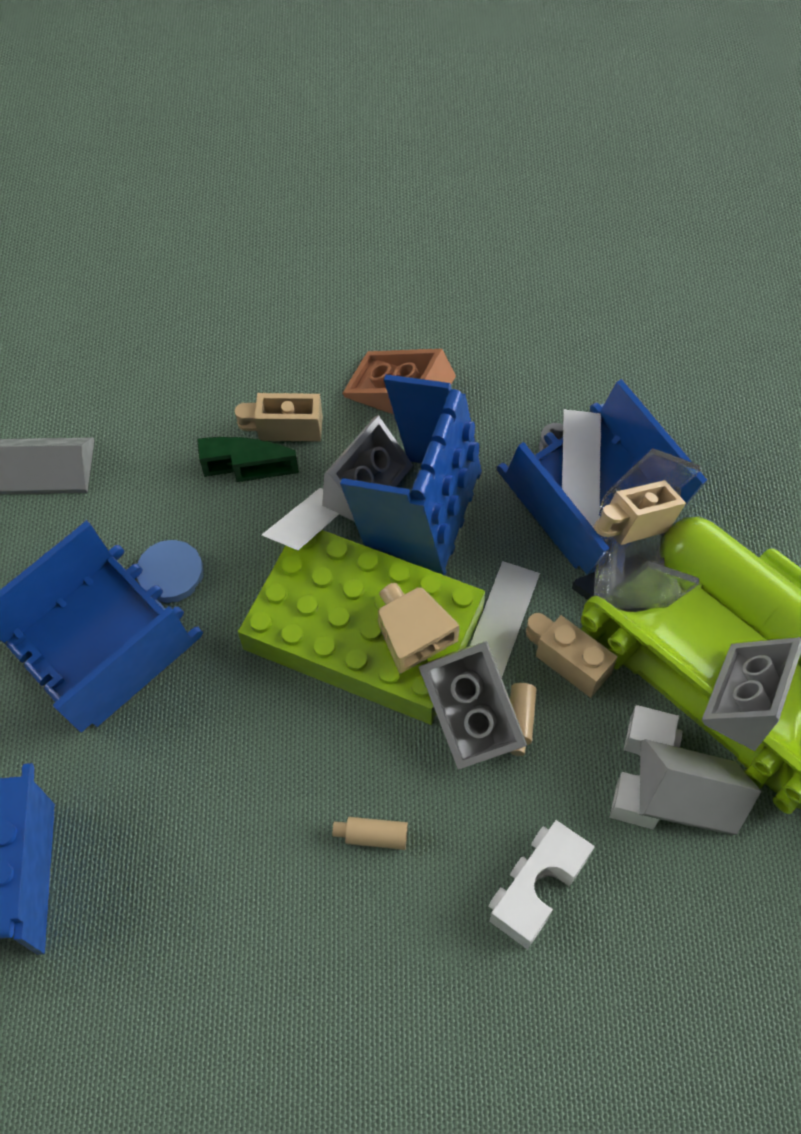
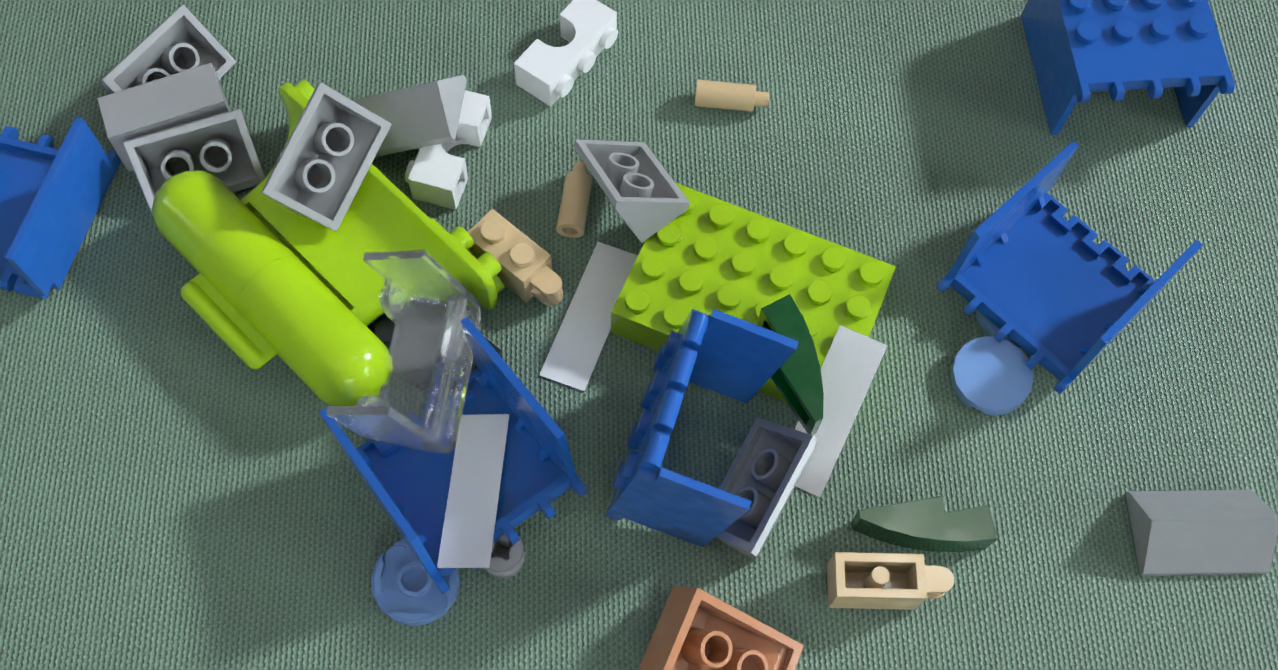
camera: 175 degrees right, 5 degrees up
(339, 534) = (800, 374): none -> dark green slope
(414, 626) = (696, 245): tan torso -> none
(640, 512) = (416, 369): tan brick -> none

